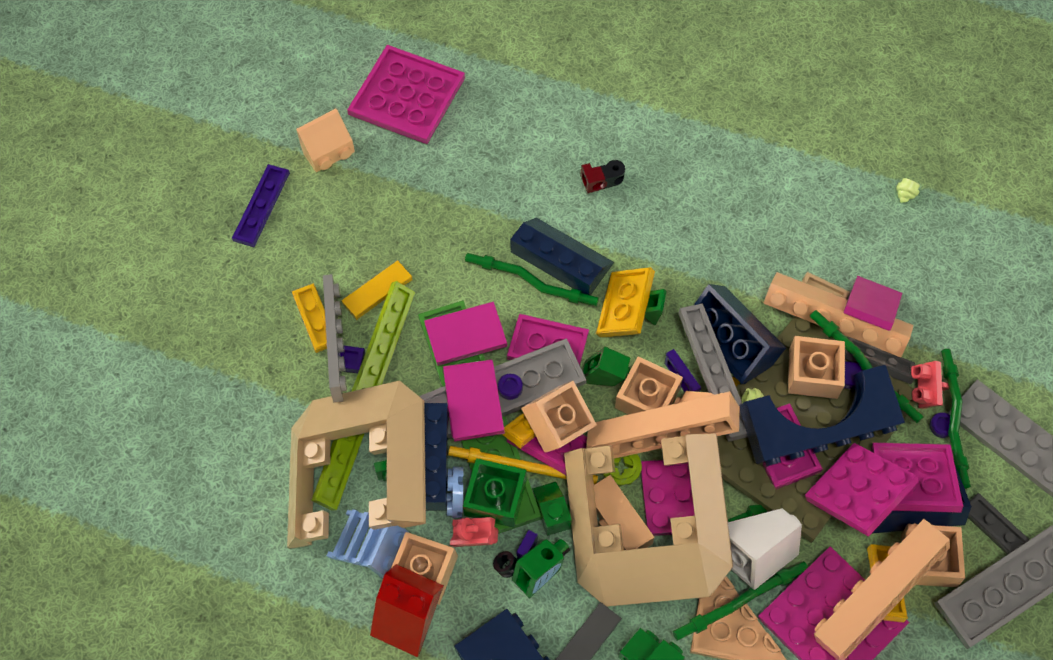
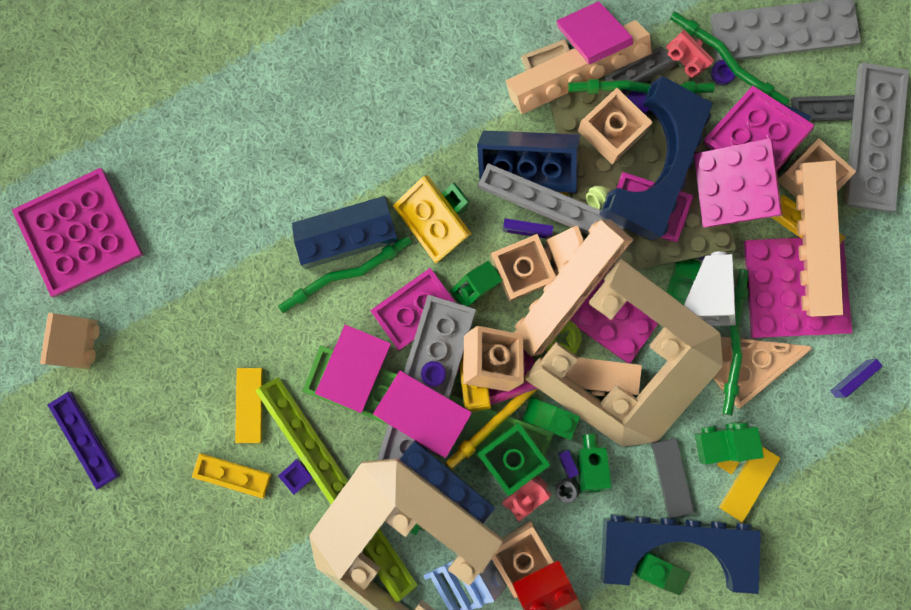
camera: 50 degrees left, 20 degrees up
(335, 345) = (277, 484): light grey plate -> none
(455, 499) = (483, 486): light blue plate -> none
(602, 176) = (301, 139): leg -> none

